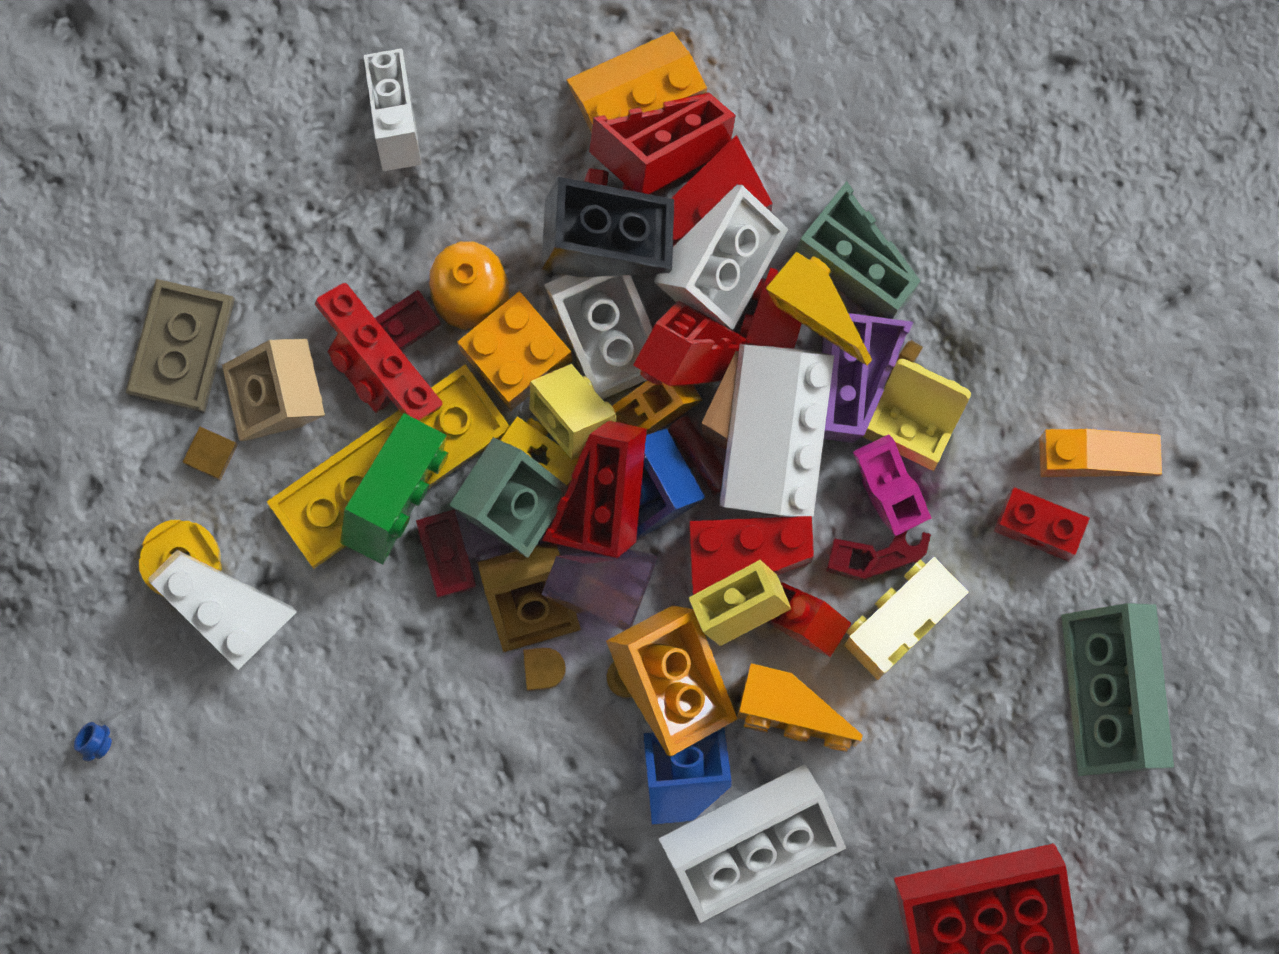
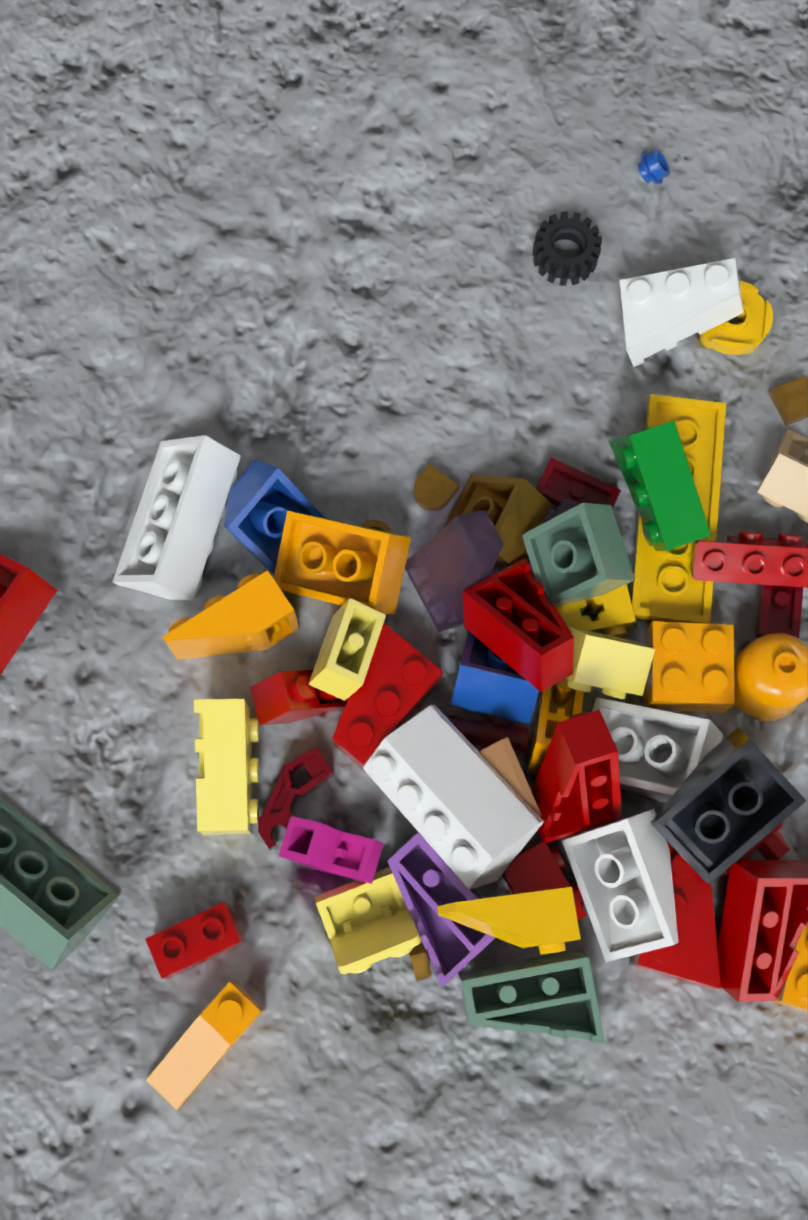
camera: 130 degrees right, 5 degrees down
(213, 736) = (572, 230): none -> black tyre

